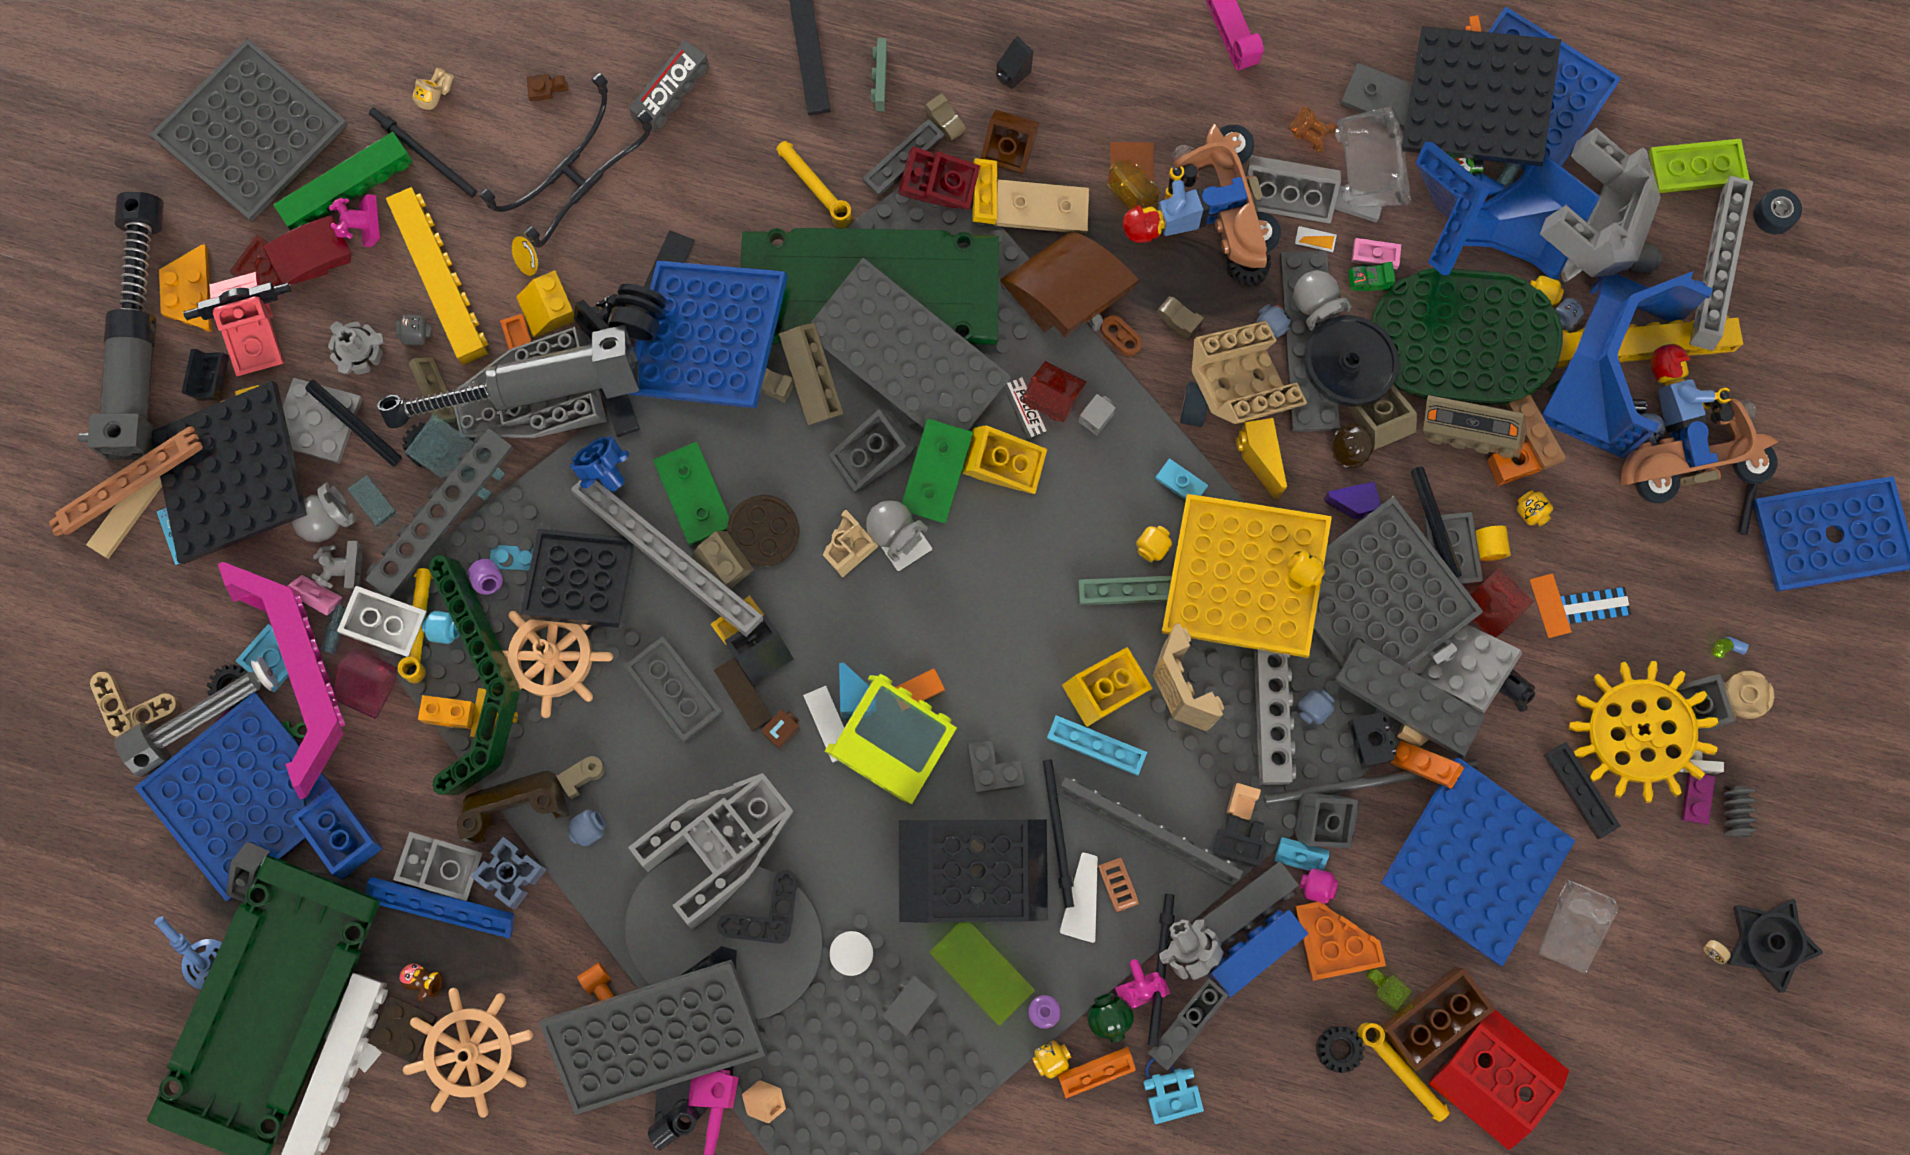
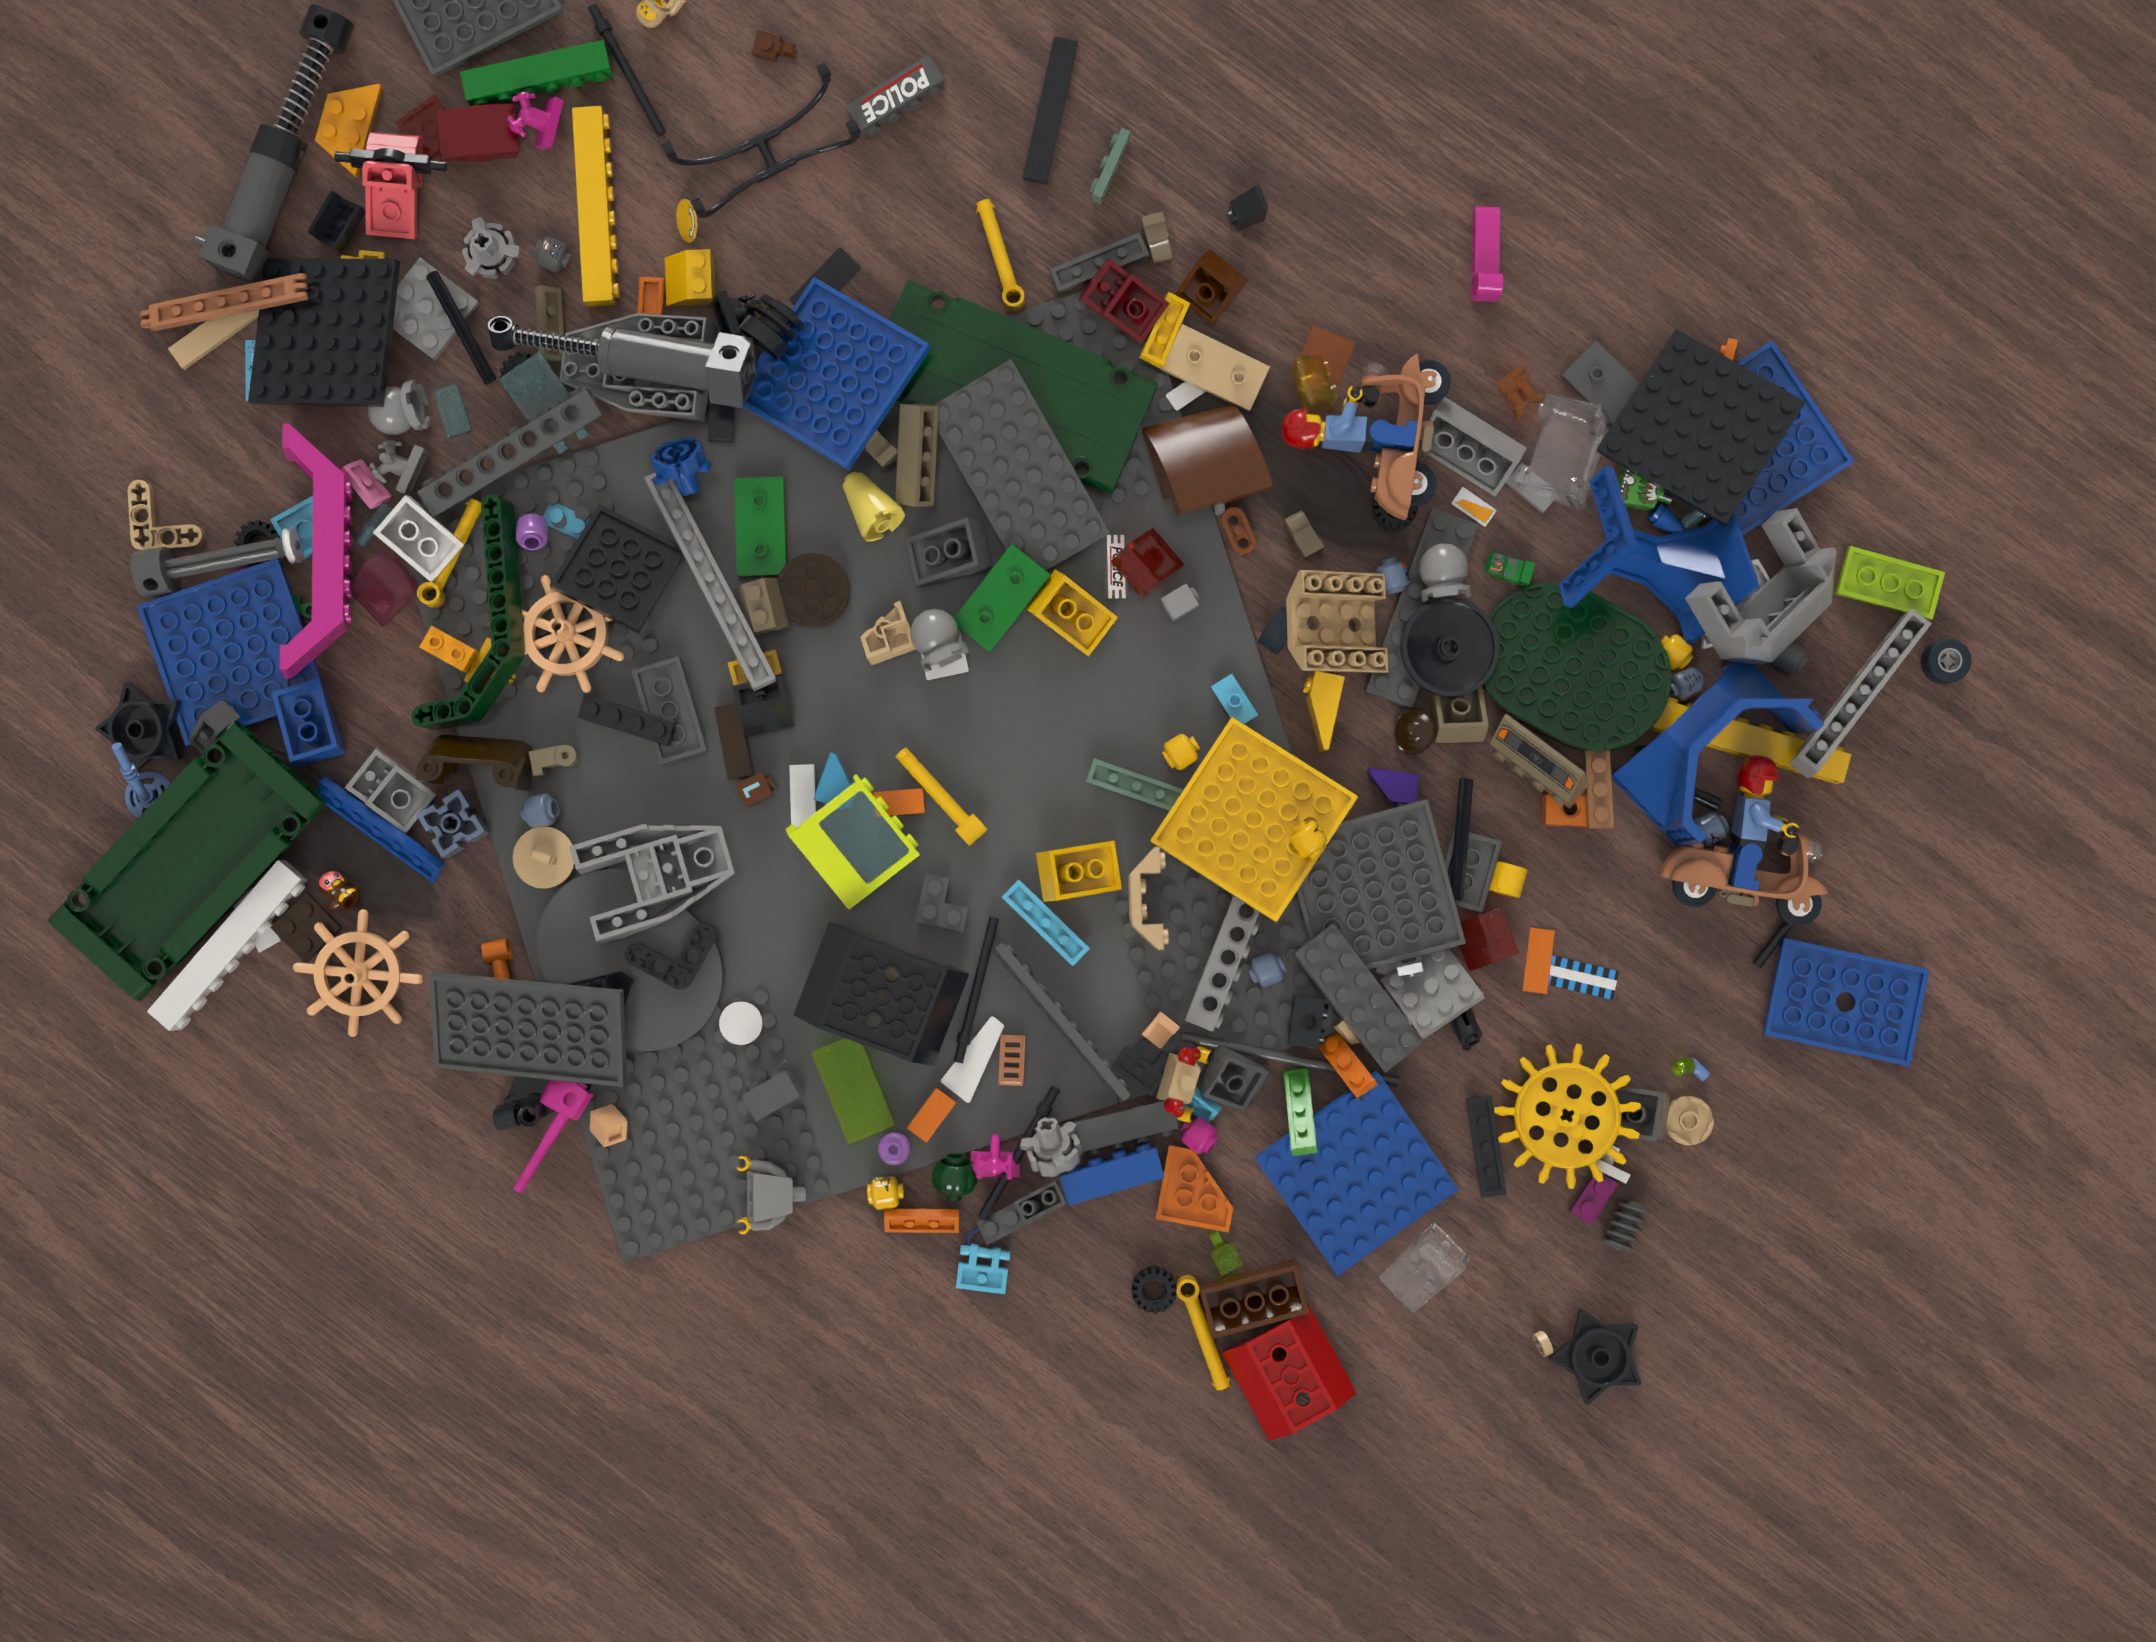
camera: 20 degrees right, 10 degrees up
(179, 897) = (143, 727): none -> black plate
(440, 627) = (471, 564): medium azure head -> none
(606, 871) = (543, 857): none -> tan shield
(637, 711) = (627, 719): none -> black plate
(788, 436) = (871, 507): none -> light yellow cone
(943, 1105) = (768, 1195): none -> light grey torso
(990, 686) = (969, 827): none -> yellow piece
(1024, 239) = (1183, 395): none -> white sticker
(1065, 967) = (931, 1115): none -> orange tile
(1284, 839) = (1180, 1081): none -> tan torso
(1375, 252) = (1525, 546): bright pink plate -> none
(1404, 823) = (1300, 1112): none -> bright green tile
(1534, 508) = (1564, 862): yellow head -> none

